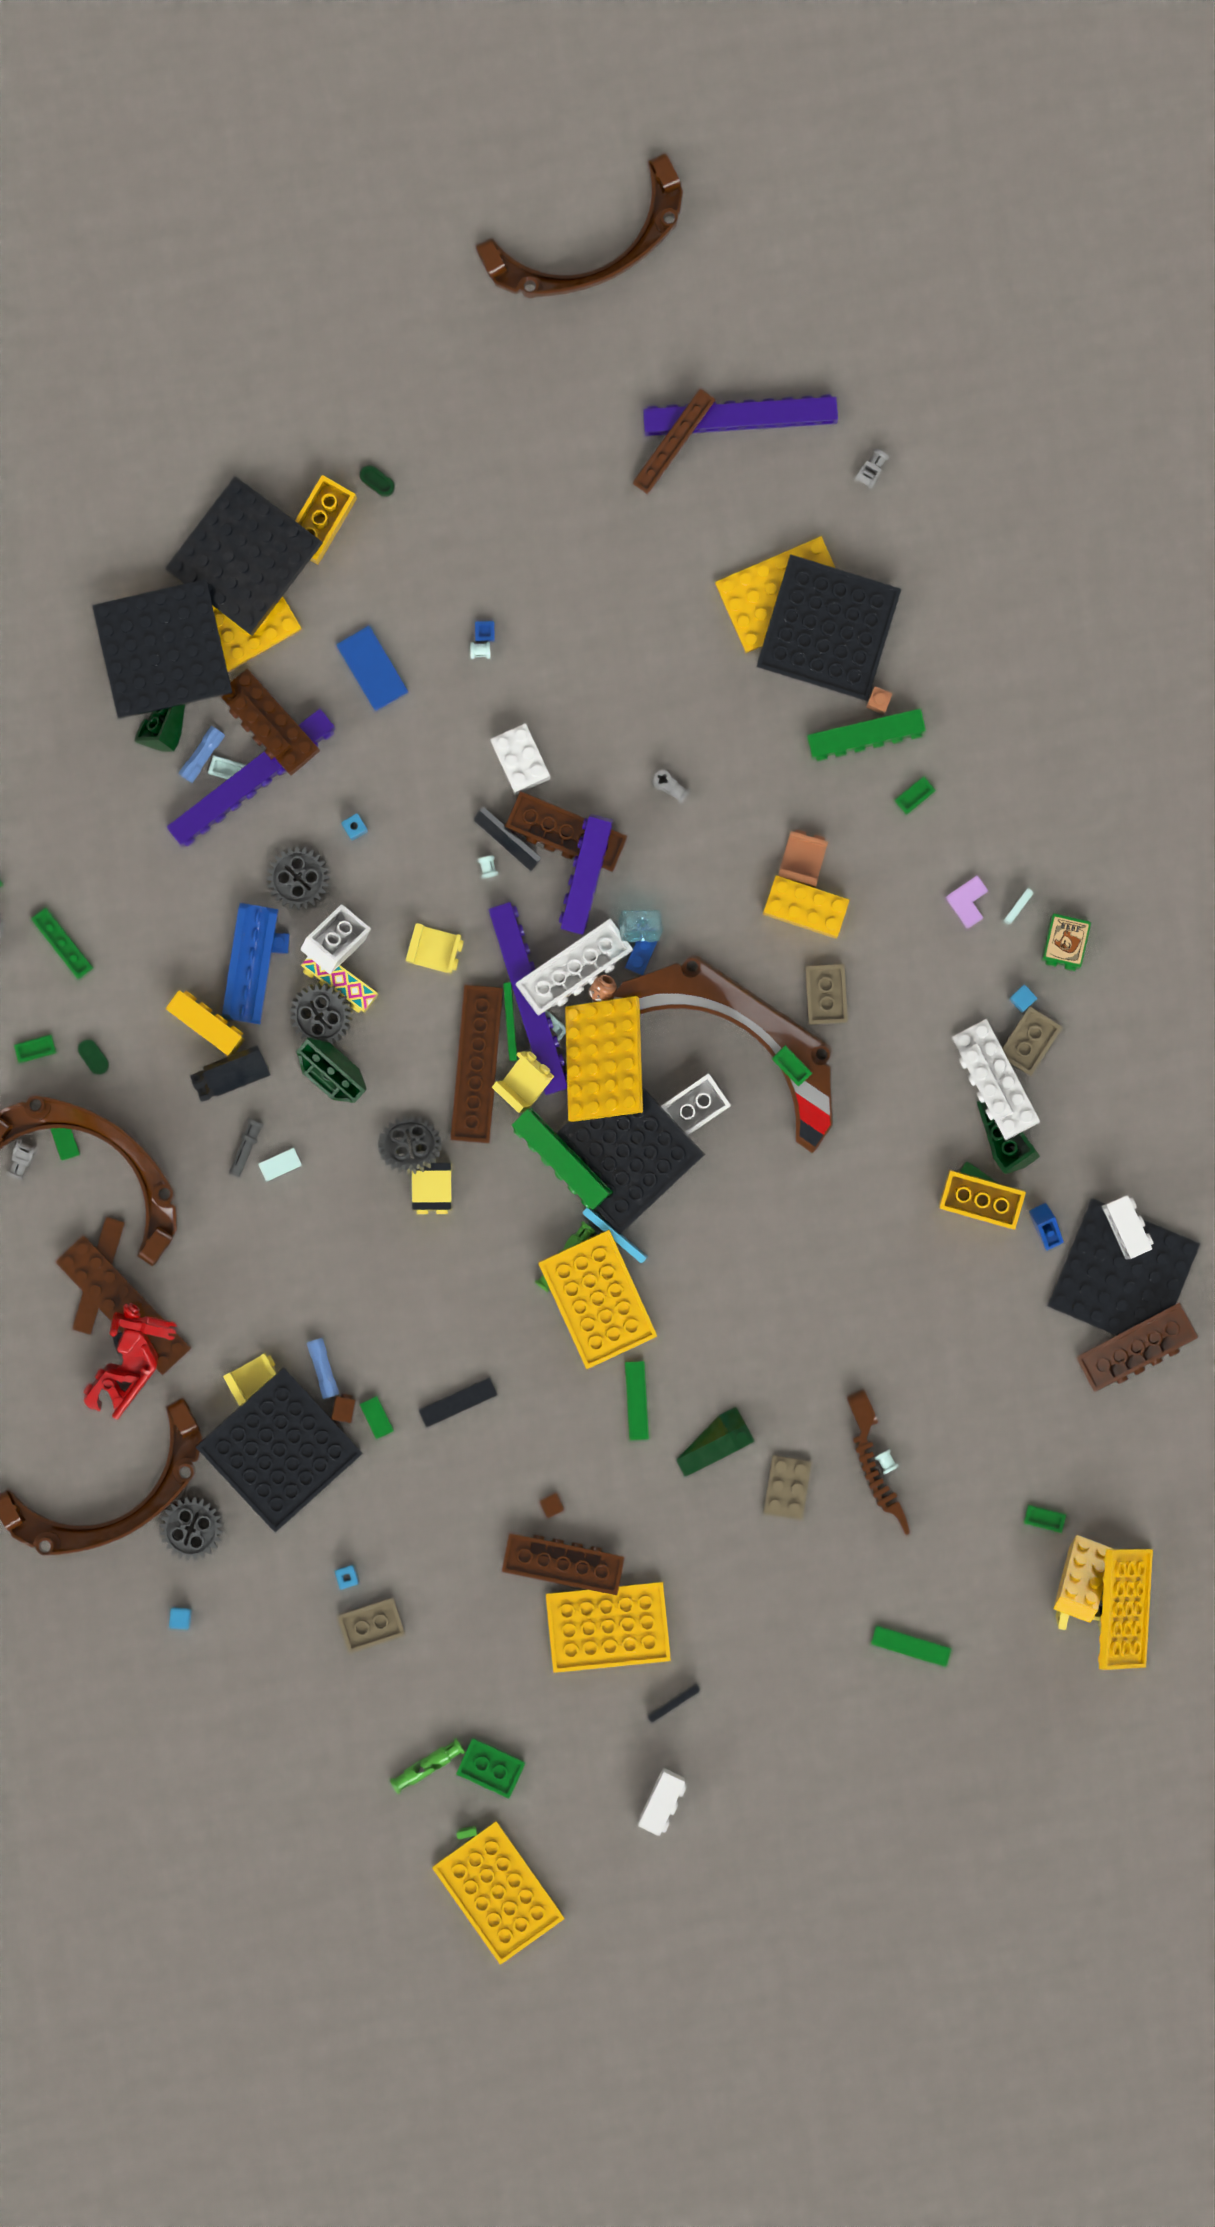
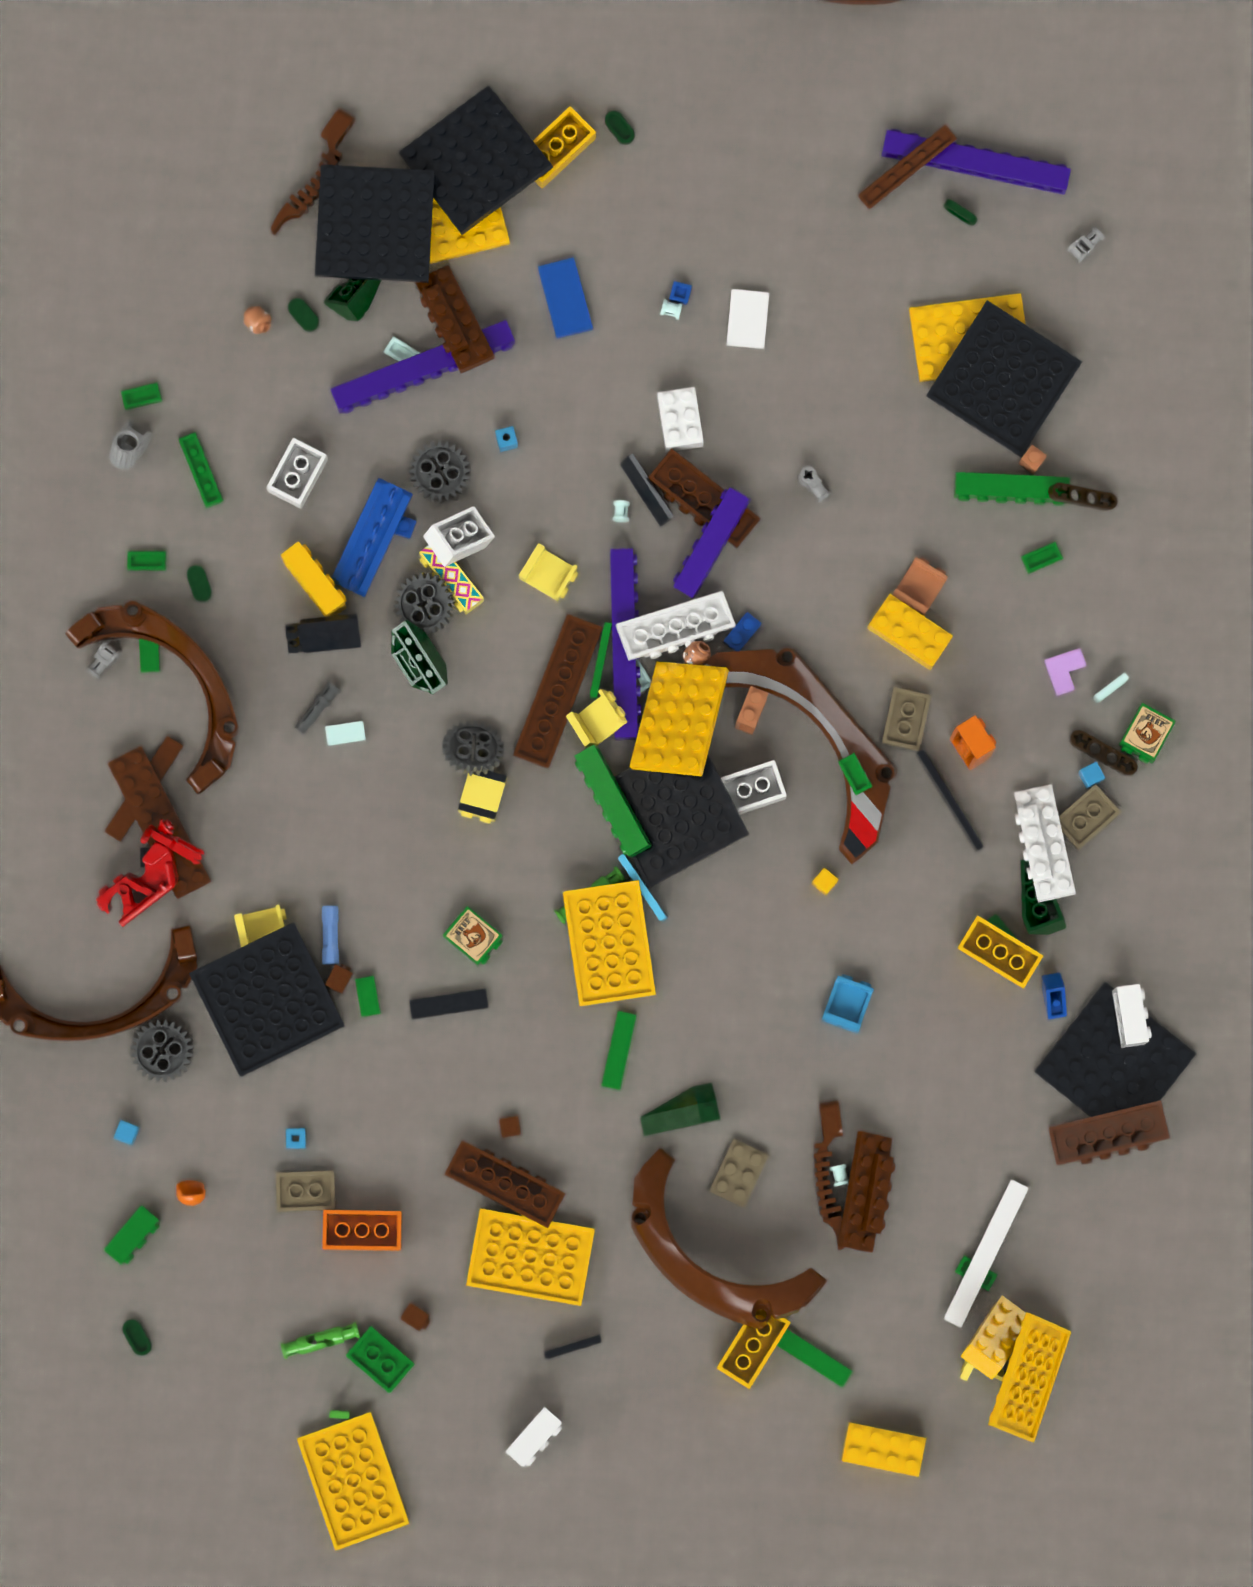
camera: 10 degrees right, 5 degrees down
(74, 777) = (257, 320): none -> nougat head
(96, 568) = (334, 134): none -> reddish brown piece
(118, 759) = (303, 315): none -> dark green tile
(158, 920) = (297, 473): none -> white brick
(208, 744) = (382, 332): medium blue axle -> none
(215, 1717) = (132, 1236): none -> green brick
(248, 1813) = (137, 1337): none -> dark green tile
(259, 1658) = (190, 1192): none -> orange hair
(437, 1648) = (362, 1230): none -> orange brick
(463, 1330) = (473, 937): none -> brick
(513, 1717) = (416, 1317): none -> reddish brown brick
(558, 638) = (747, 319): none -> white tile
(640, 926) = (749, 605): clear light blue brick -> none
(672, 1030) = (751, 710): none -> nougat panel
(739, 472) = (960, 212): none -> dark green tile
(791, 1178) = (824, 881): none -> yellow piece
(808, 1617) = (722, 1297): none -> reddish brown panel
(847, 1291) = (847, 1003): none -> dark azure panel
(848, 1652) = (751, 1350): none -> yellow brick
(891, 1063) = (949, 800): none -> black tile
(899, 1001) = (973, 742): none -> orange brick
(917, 1471) = (867, 1192): none -> reddish brown plate
(939, 726) = (1082, 496): none -> dark brown beam
(1002, 1716) = (883, 1449): none -> yellow brick
(1028, 974) = (1102, 755): none -> dark brown beam
(1049, 1497) = (985, 1253): none -> white tile

